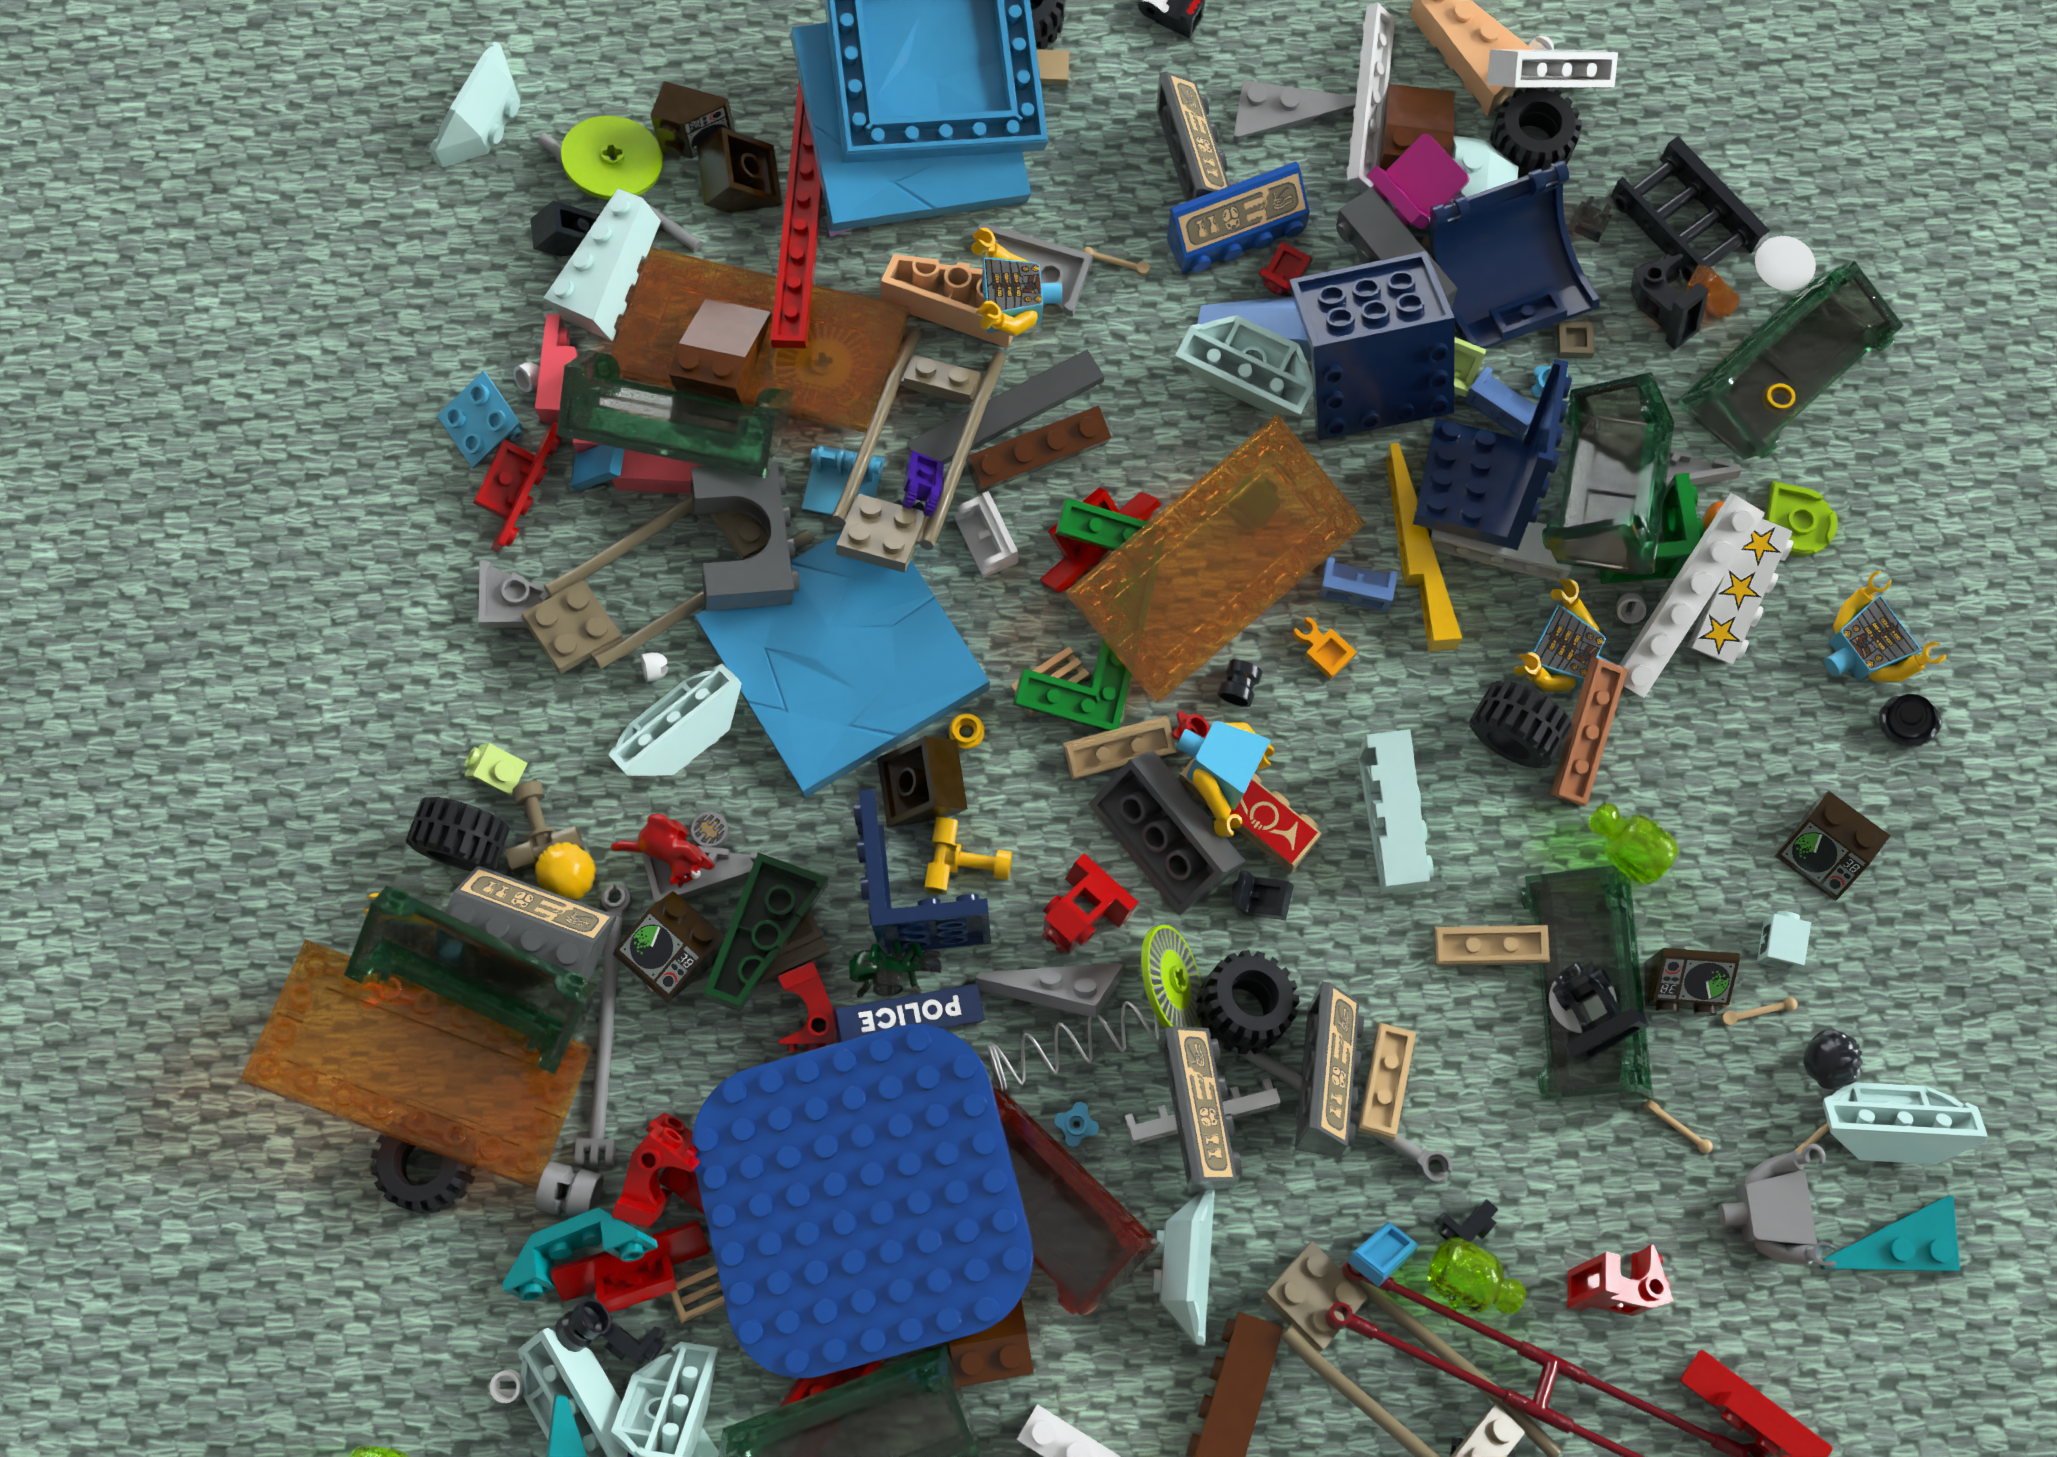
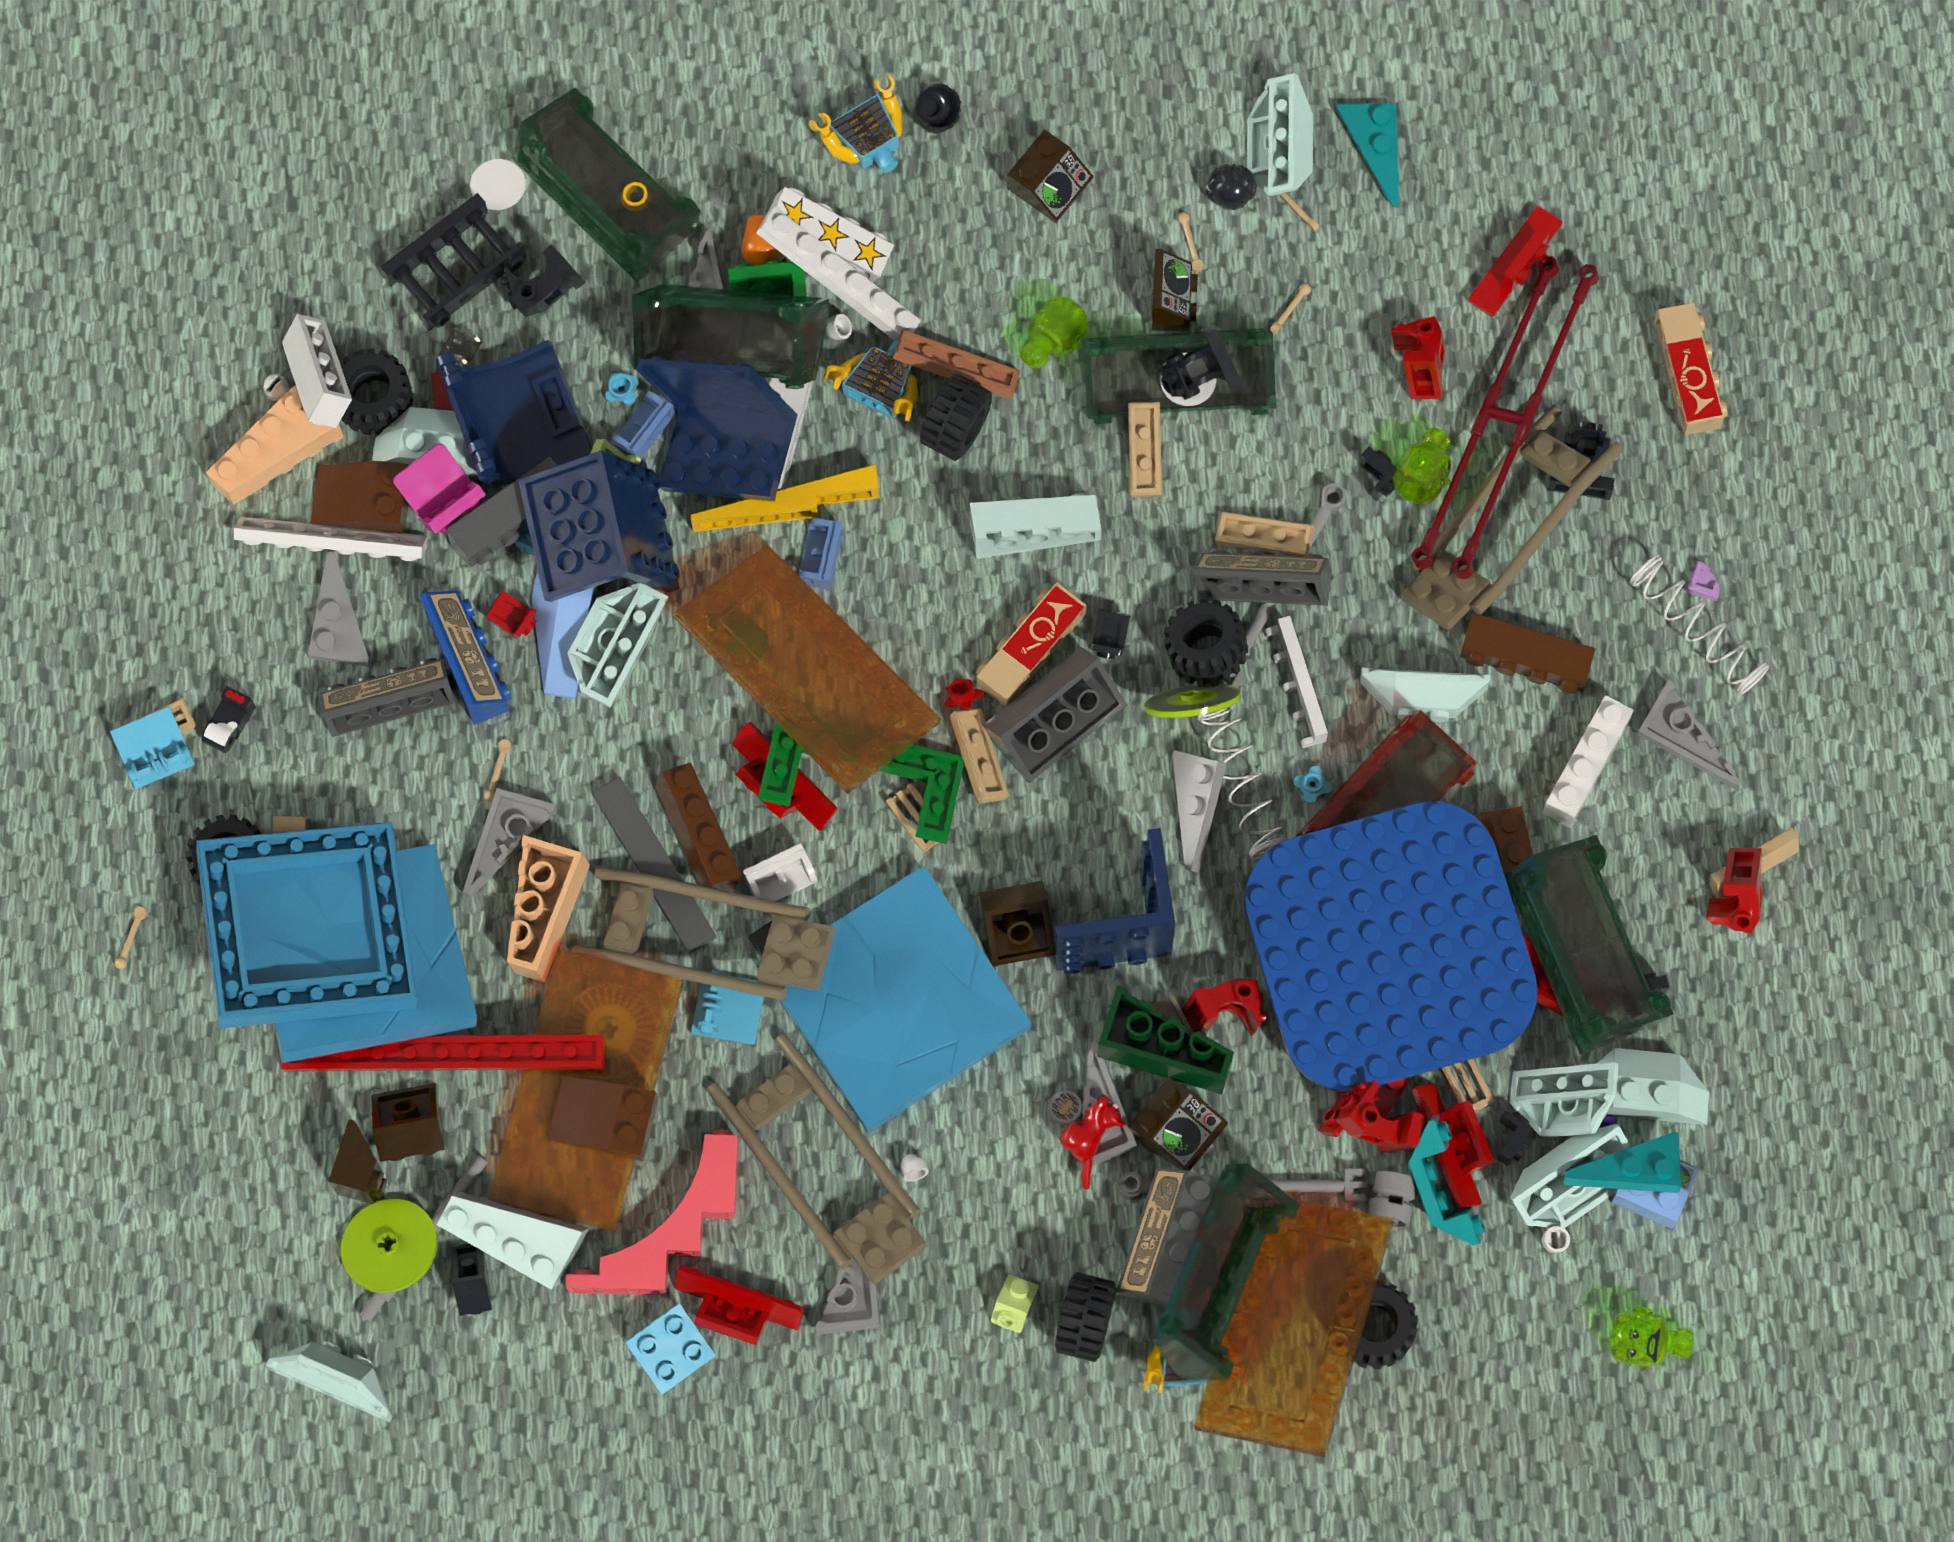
camera: 90 degrees left, 0 degrees up
(526, 376) = (623, 1313): white hinge -> none
(527, 854) = (1082, 1252): dark tan bar -> none
(565, 870) = (1111, 1227): yellow hair -> none
(582, 1325) = (1506, 1173): black wheel -> none
(596, 466) = (720, 1228): dark azure tile -> none
(668, 421) = (685, 1145): clear green windscreen -> none
(679, 725) = (969, 1137): light aqua wedge -> none
(766, 576) = (752, 1071): dark grey arch -> none
(887, 971) = (1194, 937): animal -> none
(923, 481) = (741, 924): dark purple hinge -> none
(936, 1008) = (1228, 921): dark blue tile -> none
(949, 858) = (1084, 896): yellow bar -> none
(972, 722) = (970, 879): yellow plate -> none
(1011, 288) = (553, 847): torso -> none
(1067, 923) = (1141, 793): red tile -> none
(1199, 1108) = (1303, 676): slope -> none
(1225, 767) = (1004, 657): medium azure torso -> none
(1240, 681) = (917, 653): black wheel -> none
(1326, 651) = (884, 580): light orange plate -> none
(1383, 1253) = (1409, 536): dark azure tile -> none
(1575, 339) = (578, 365): dark tan tile -> none
(1721, 298) = (536, 243): clear orange piece -> none
(1778, 1210) = (1356, 235): light grey torso -> none
(1784, 941) = (1133, 218): light aqua brick -> none
(1804, 514) = (750, 186): lime tile -> none

